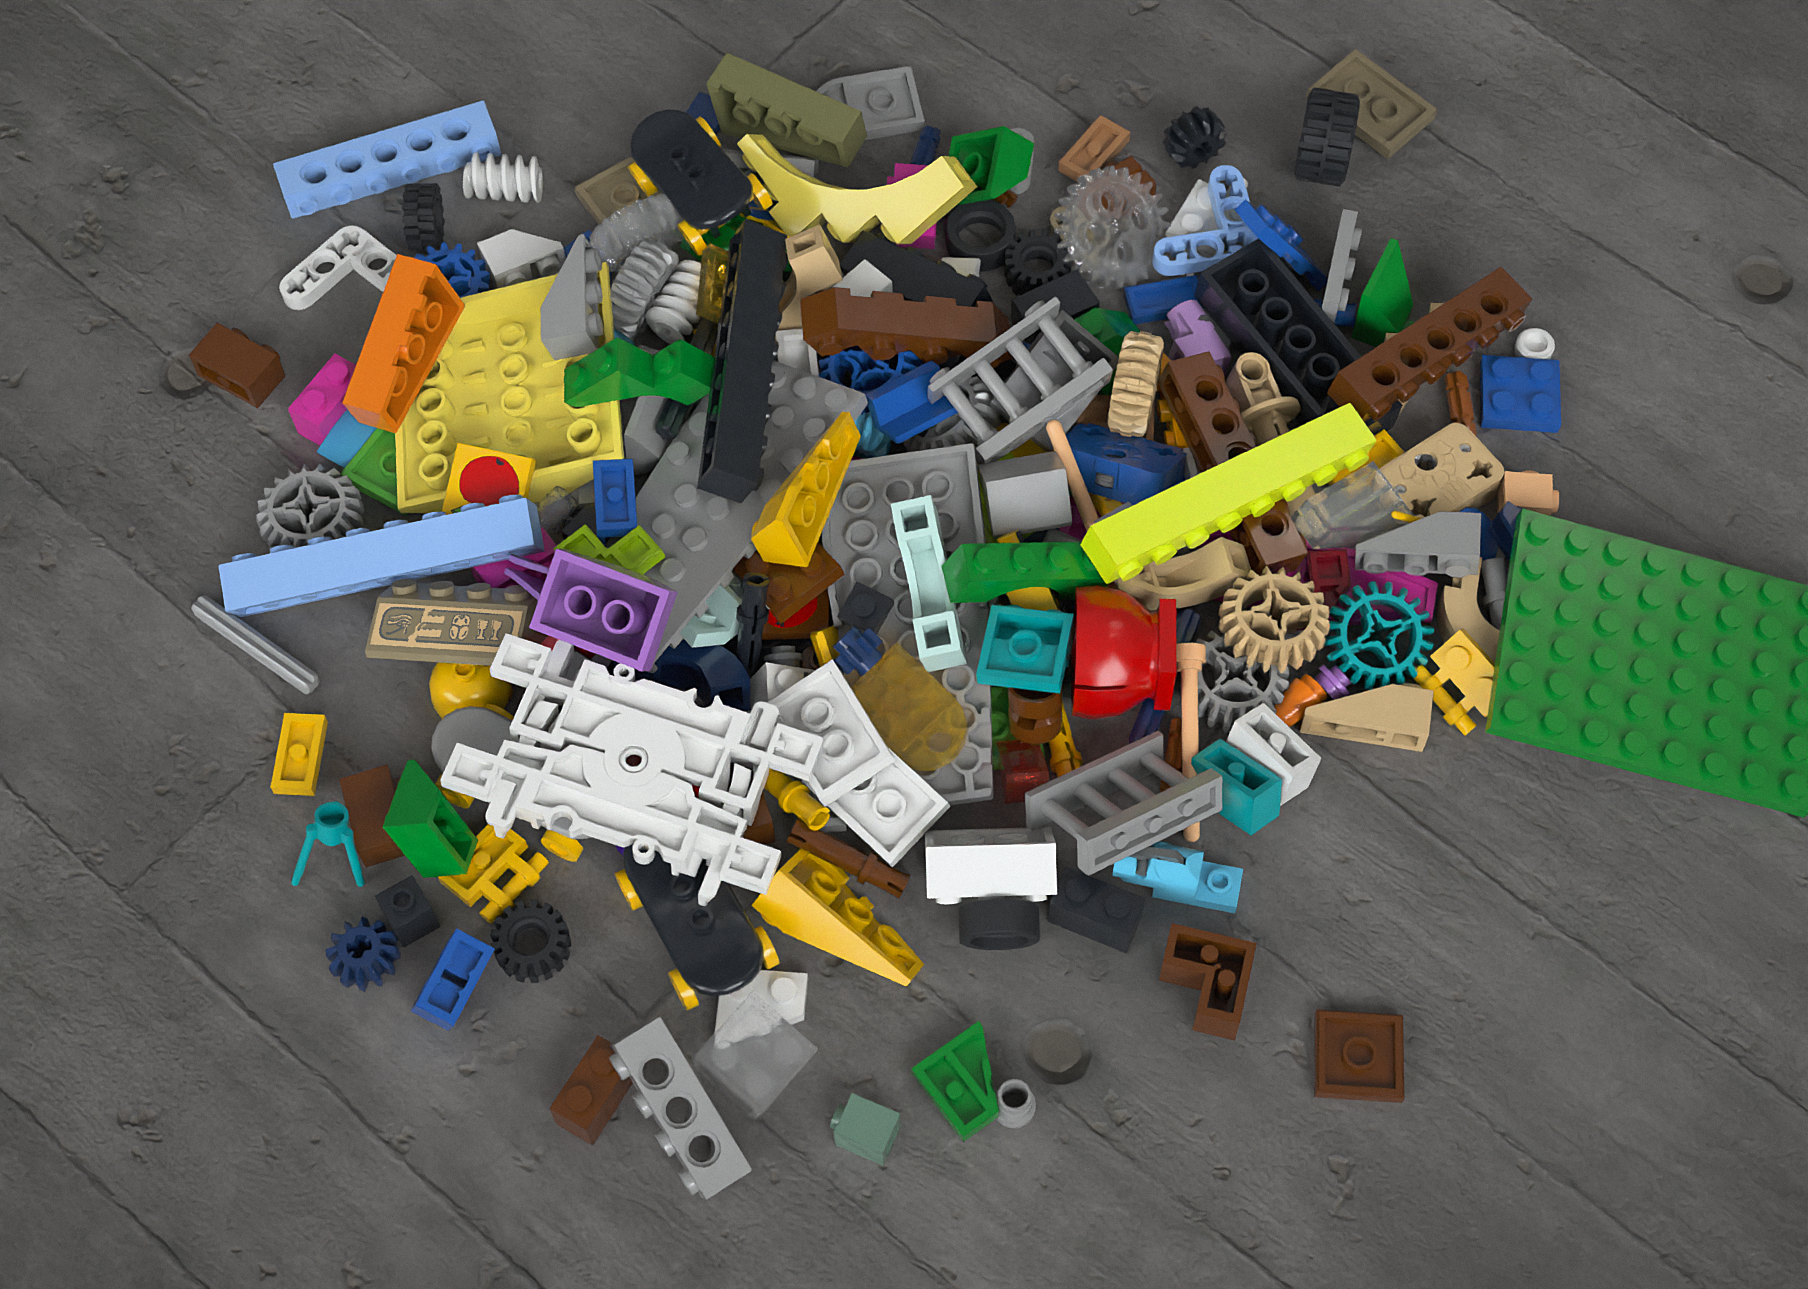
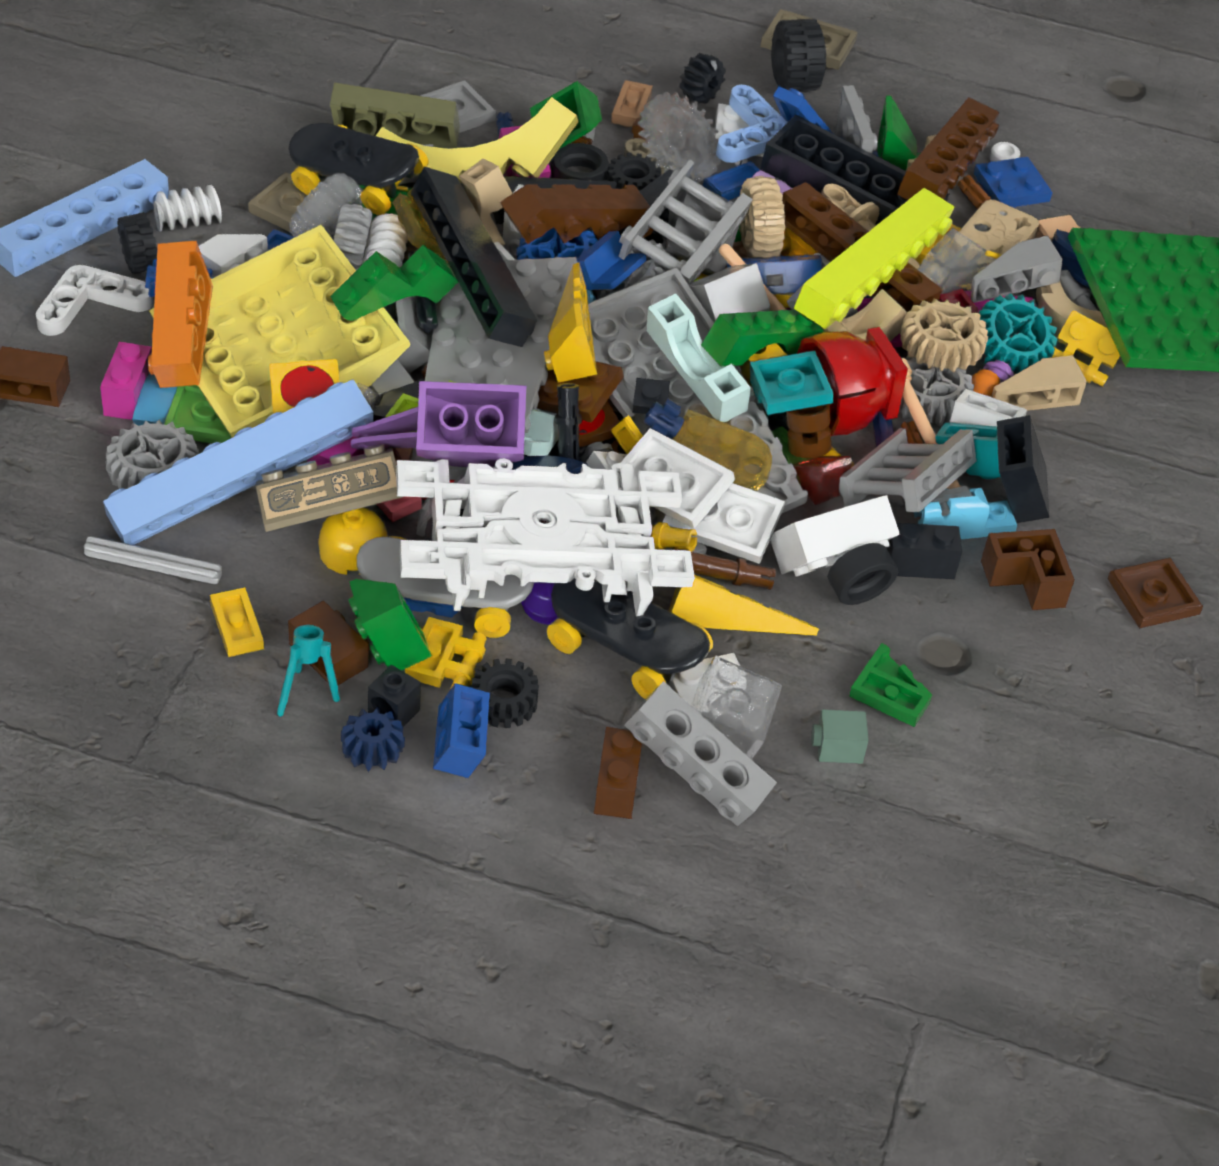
camera: 30 degrees left, 15 degrees down
(571, 307) = (315, 253): light grey slope -> none
(614, 498) = (408, 366): blue panel -> none
(1019, 1116) = (940, 684): light grey piece -> none
(1265, 844) = (1022, 469): none -> black brick

